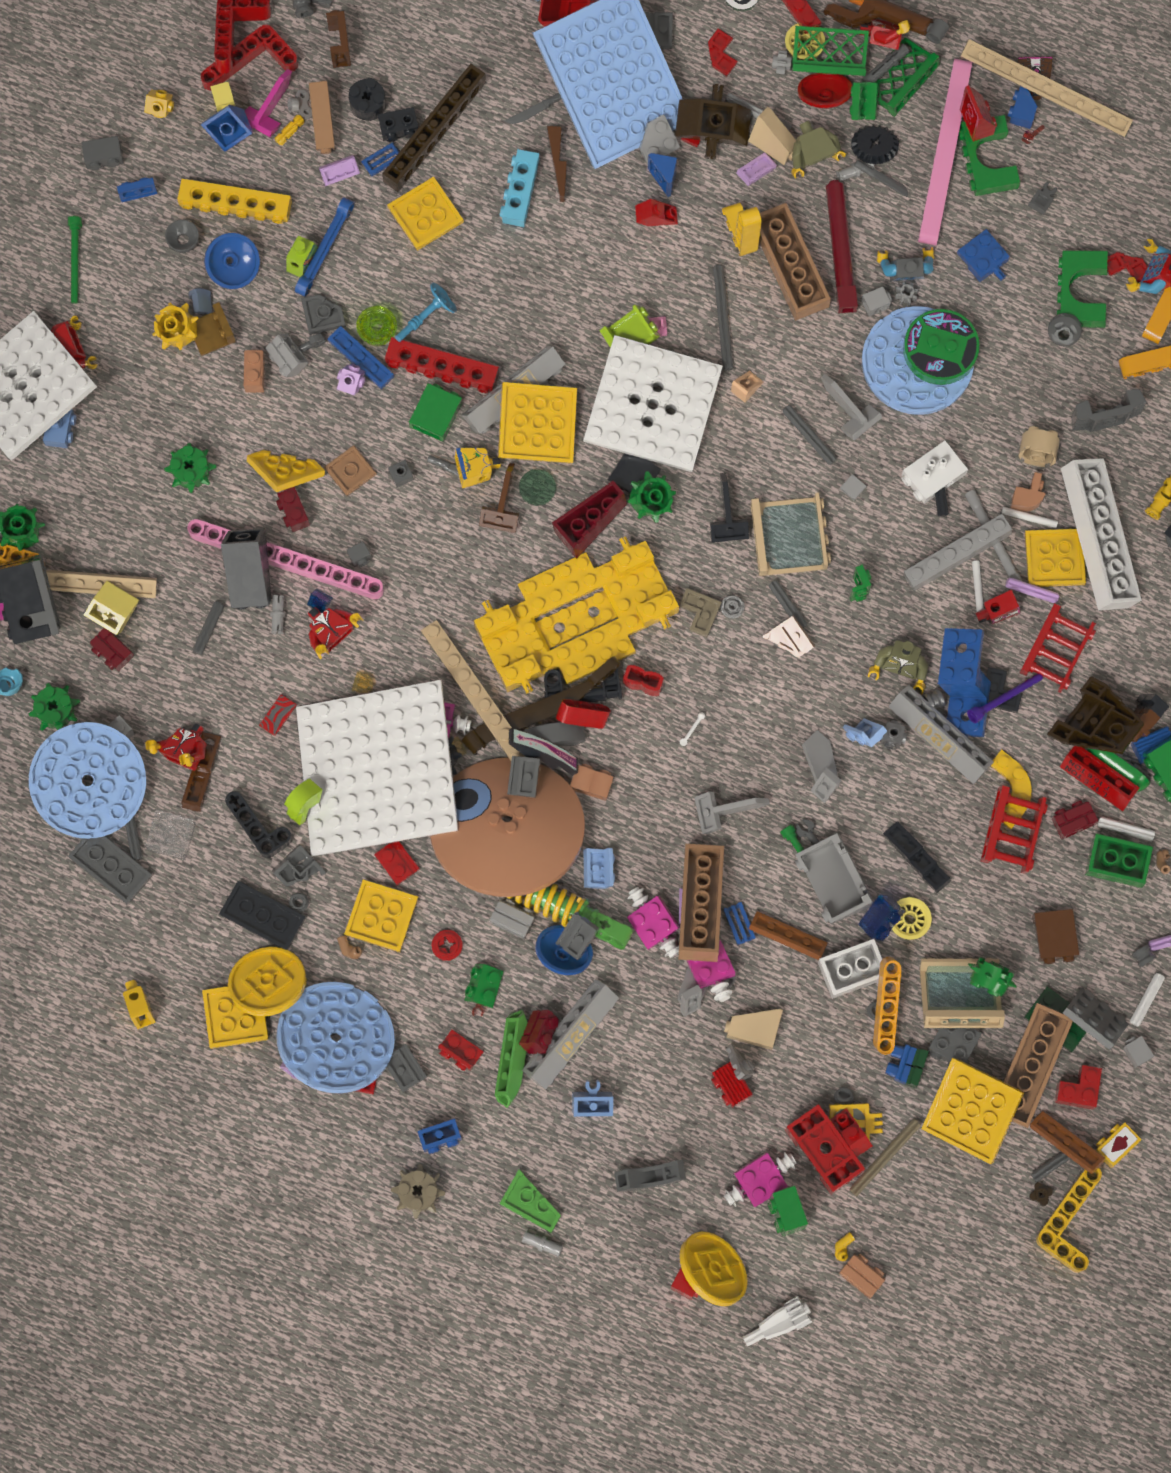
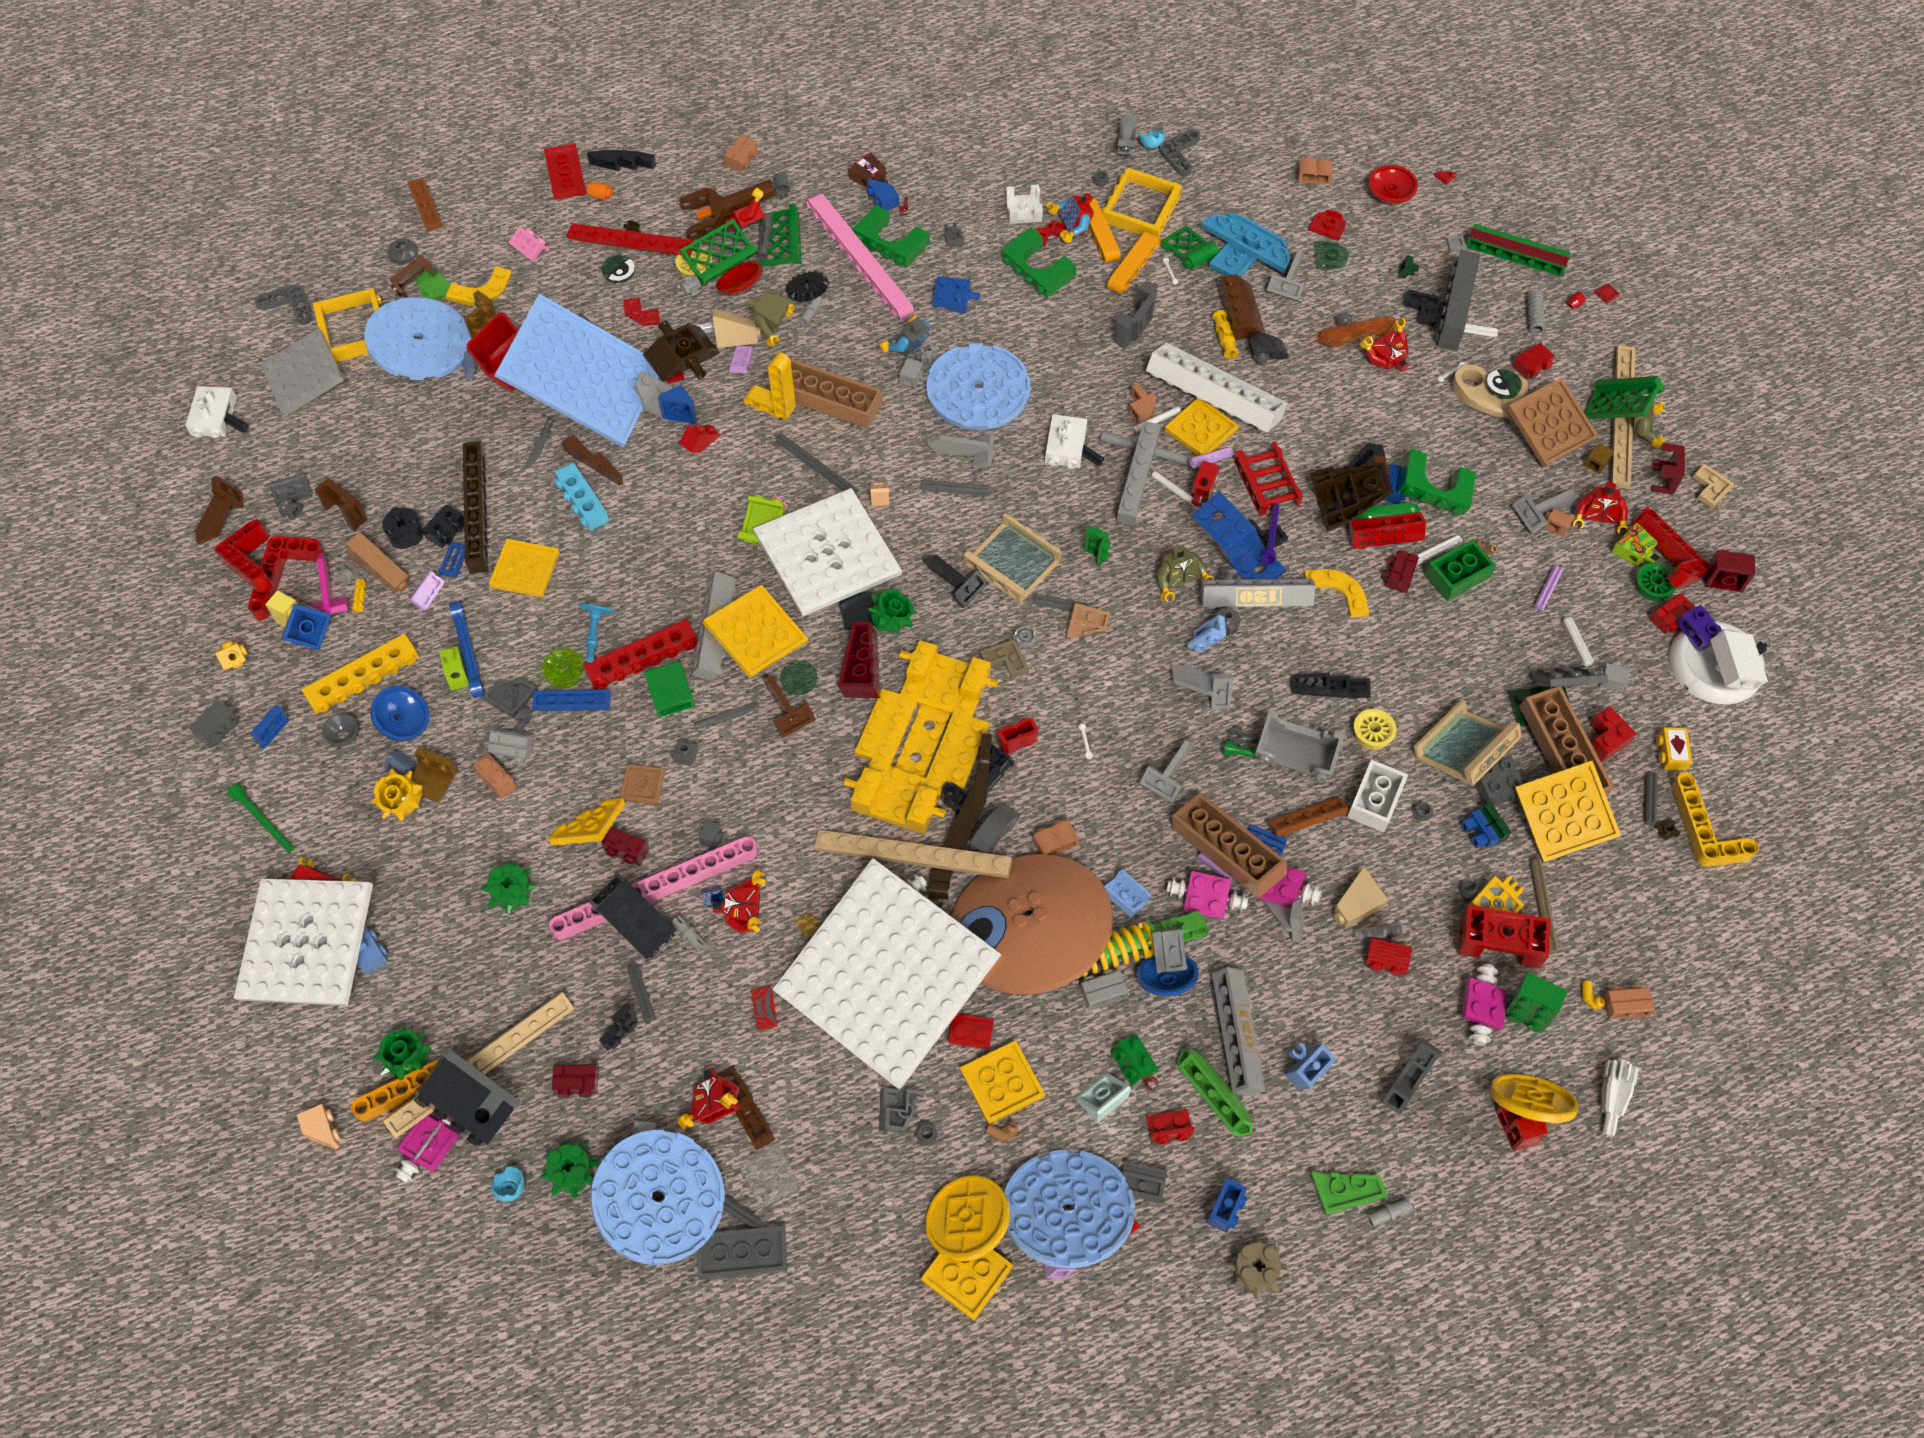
camera: 45 degrees left, 15 degrees down
(112, 607) = (545, 1044): light yellow slope -> none
(137, 1004) = (883, 1345): yellow torso -> none
(174, 638) = (624, 1022): none -> black plate
(253, 823) = (830, 1104): black beam -> none
(262, 915) = (908, 1172): black plate -> none
(302, 799) = (852, 1050): lime brick -> none
(350, 379) = (584, 724): lavender brick -> none
(436, 989) = (1103, 1096): none -> light aqua slope
(438, 941) = (1072, 1047): red gear -> none
(474, 465) = (736, 700): yellow torso -> none
(523, 776) = (1008, 871): dark grey plate -> none
(539, 1032) = (1215, 1050): dark red brick -> none
(549, 753) = (999, 842): slope -> none
(583, 713) = (1000, 794): red beam -> none
(841, 249) = (887, 382): dark red brick -> none
(851, 1132) = (1509, 901): red slope -> none
(853, 487) = (1022, 495): light grey tile -> none
(864, 101) = (775, 264): green bracket -> none
(881, 917) = (1358, 742): clear blue brick -> none
(887, 996) = (1431, 795): light orange beam -> none
(893, 184) = (839, 300): dark grey piece -> none
(941, 346) = (986, 362): brick -> none
(976, 114) = (860, 209): red slope -> none
(991, 976) = (1476, 709): green brick -> none
(995, 834) = (1366, 624): red fence -> none
(1039, 447) = (1120, 366): tan brick -> none
(1046, 88) = (885, 169): tan plate -> none
(1056, 936) = (1478, 652): reddish brown panel -> none
(1064, 322) = (1047, 290): dark grey piece -> none
(1067, 1142) = (1648, 775): dark orange plate -> none
(1130, 222) = (1024, 207): none -> white panel
(1144, 956) = (1544, 615): dark grey wheel -> none

